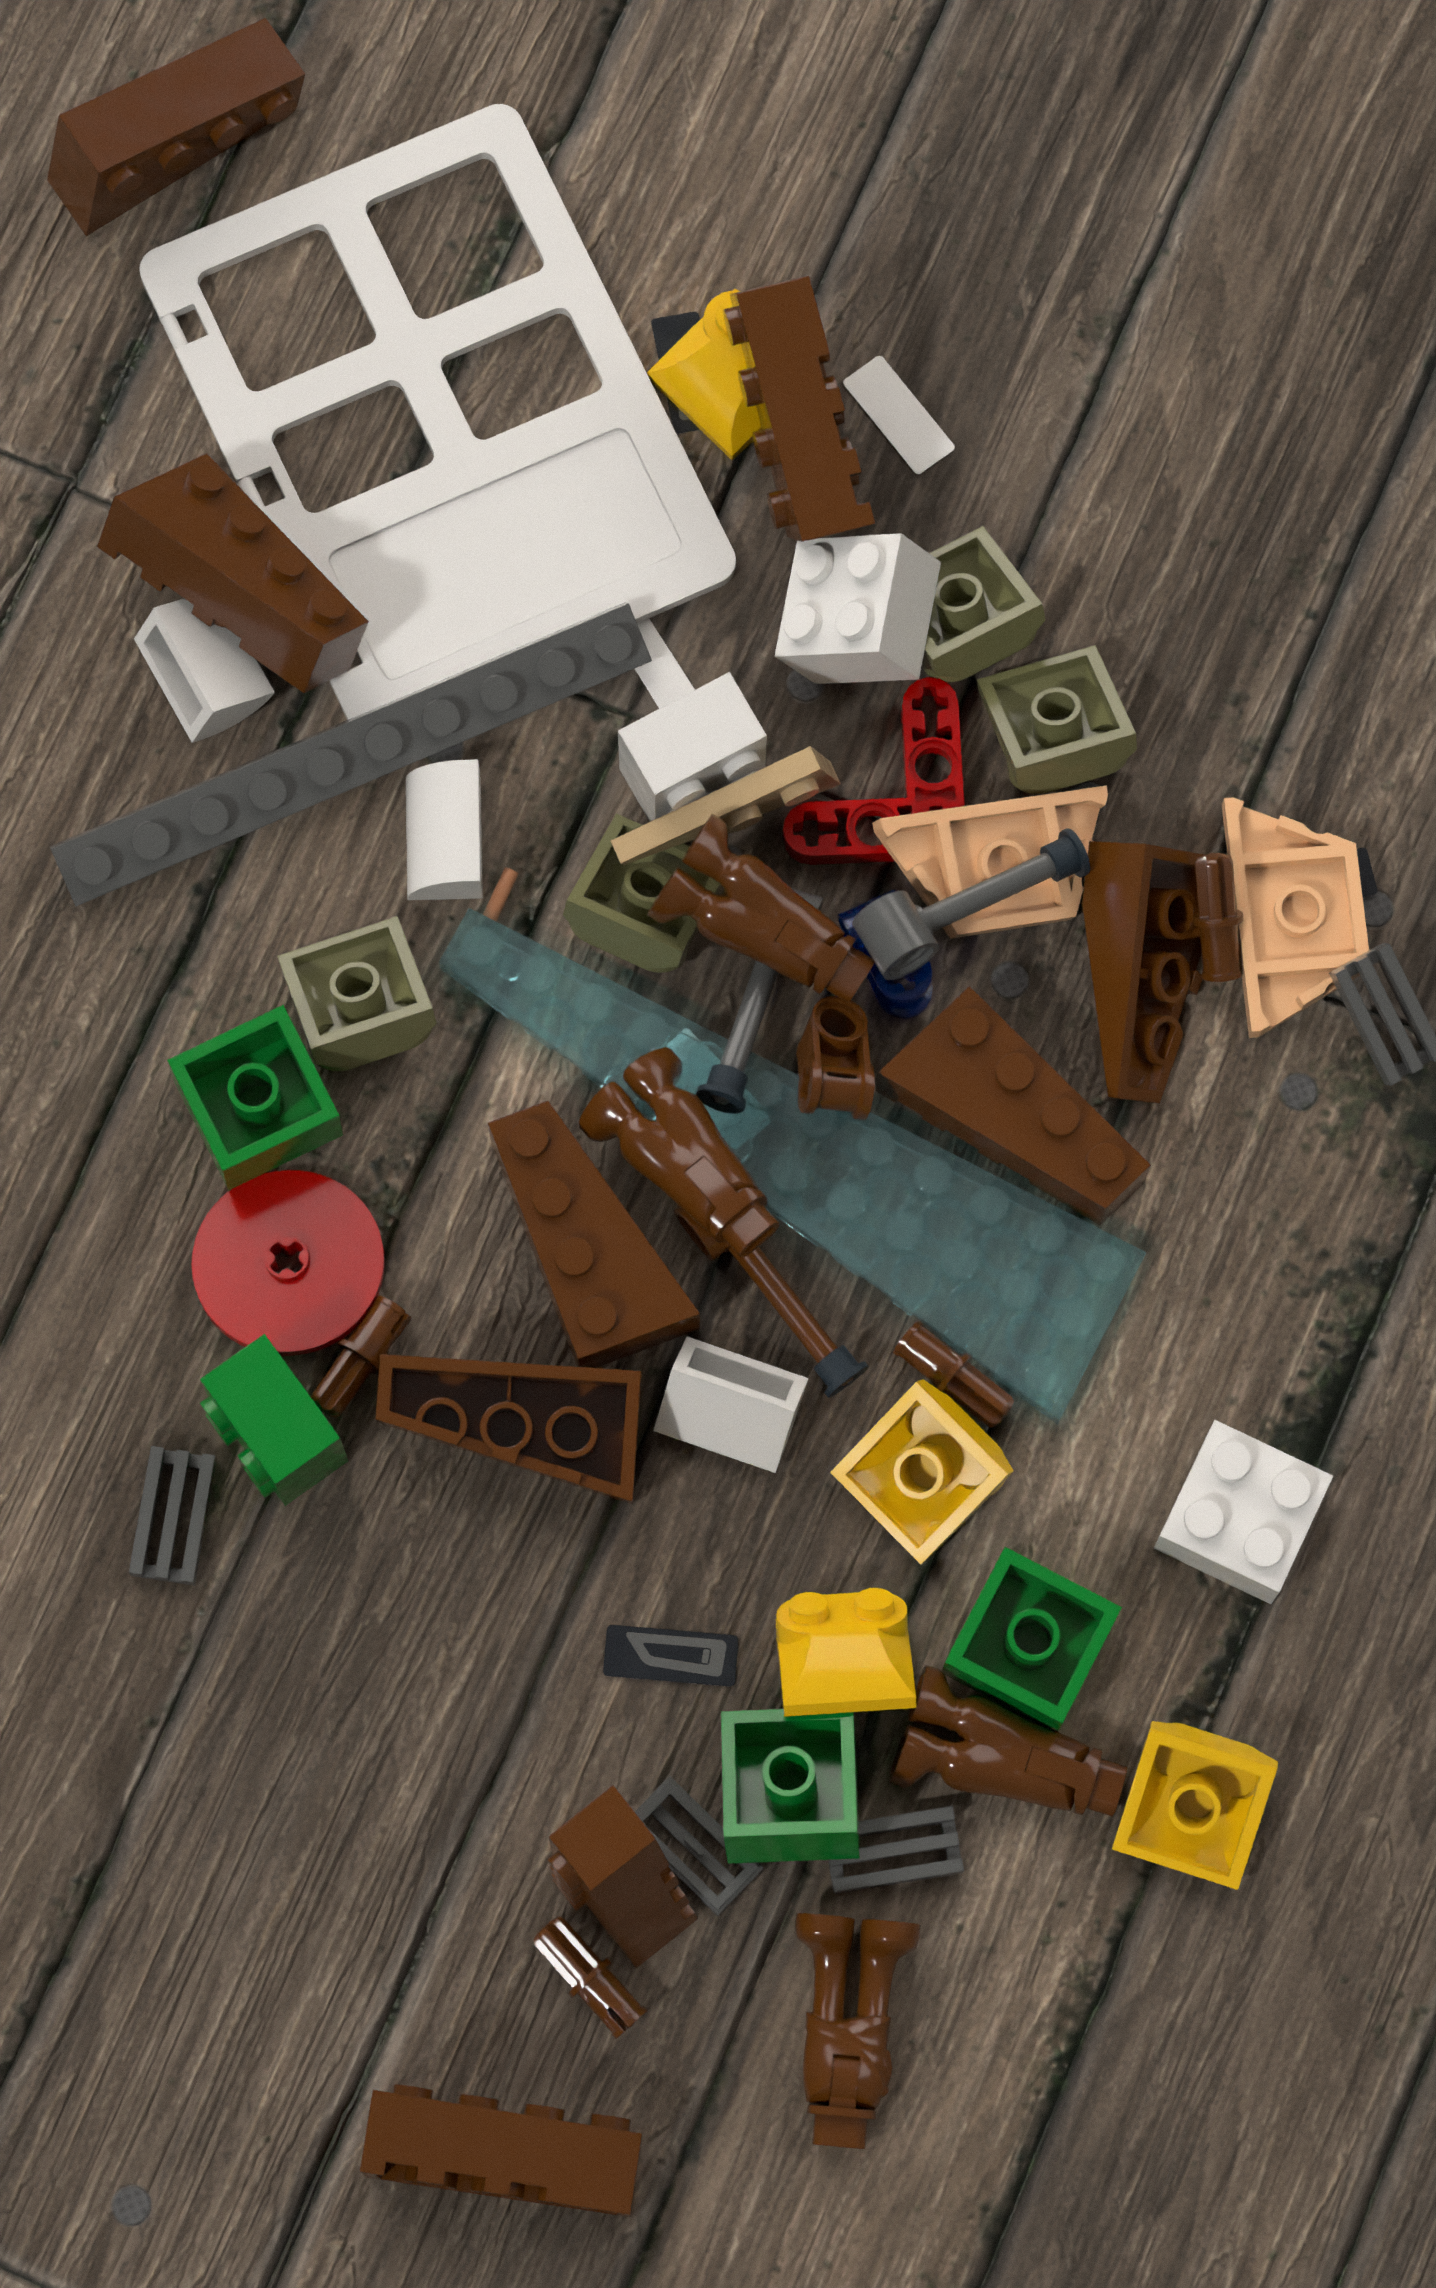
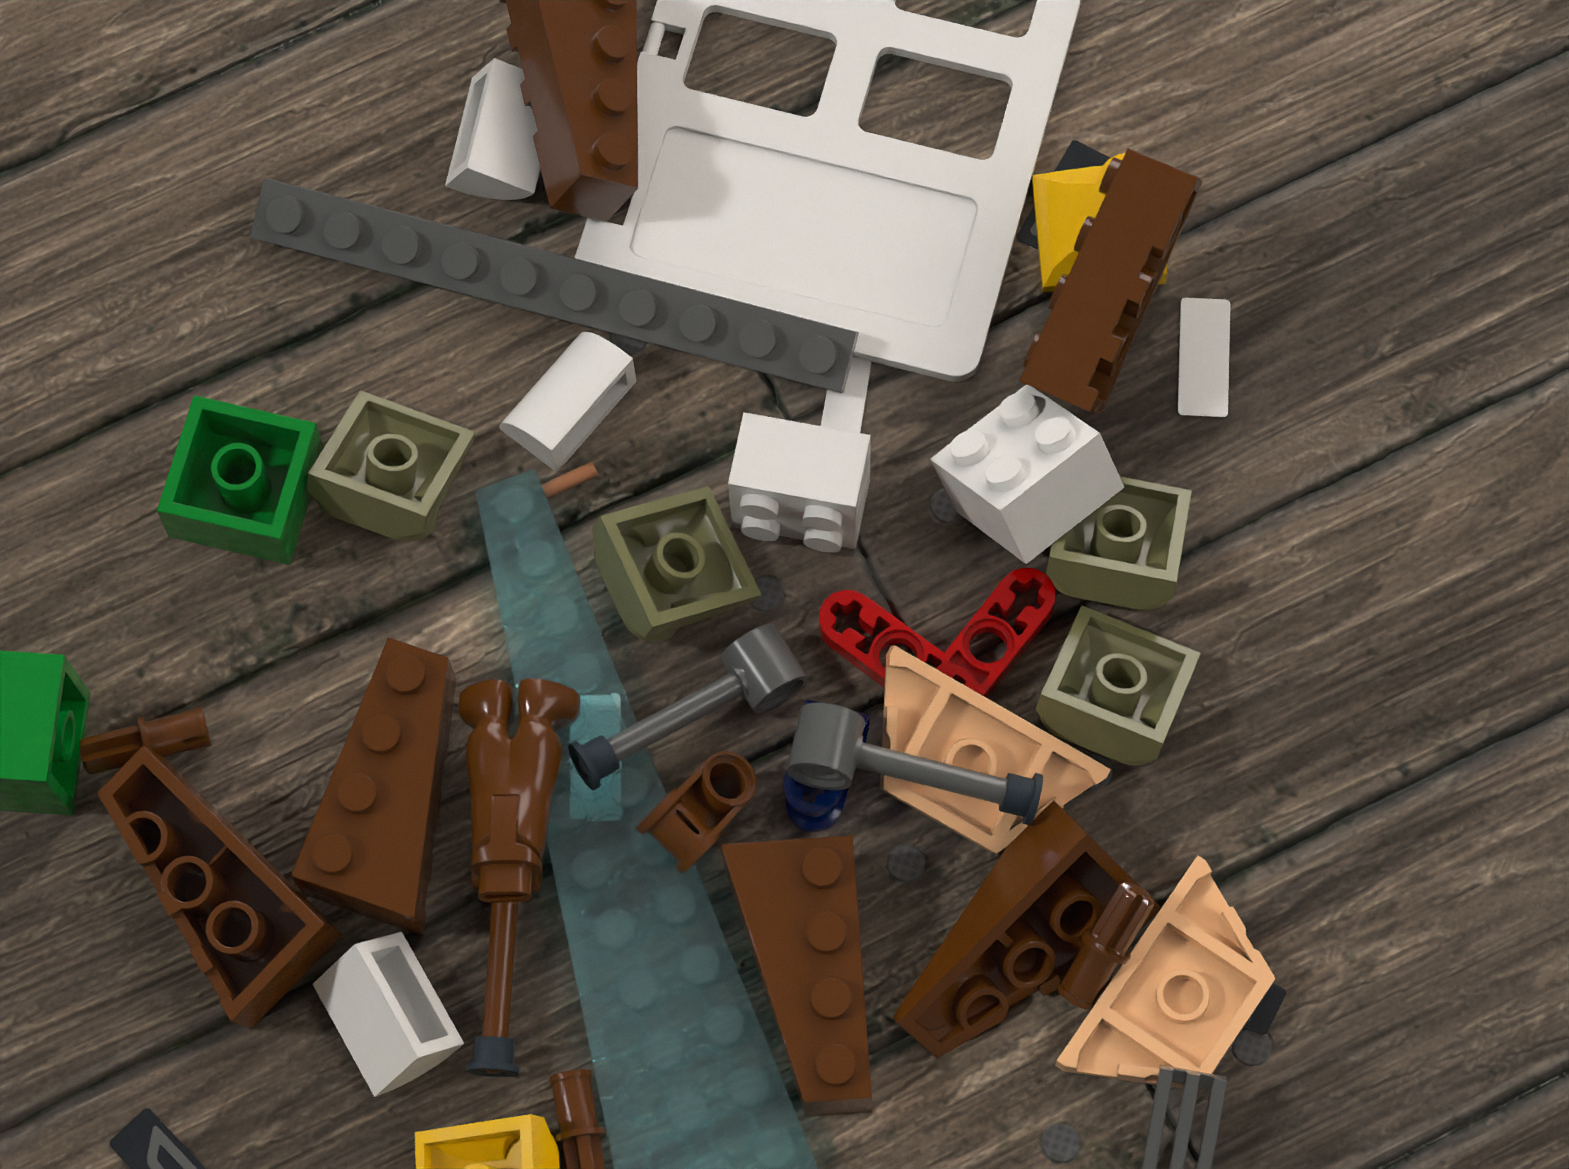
camera: 45 degrees right, 5 degrees down
(288, 1214) = (119, 605): red piece -> none
(737, 804) = (800, 548): tan wing -> none
(760, 916) = (733, 645): reddish brown piece -> none

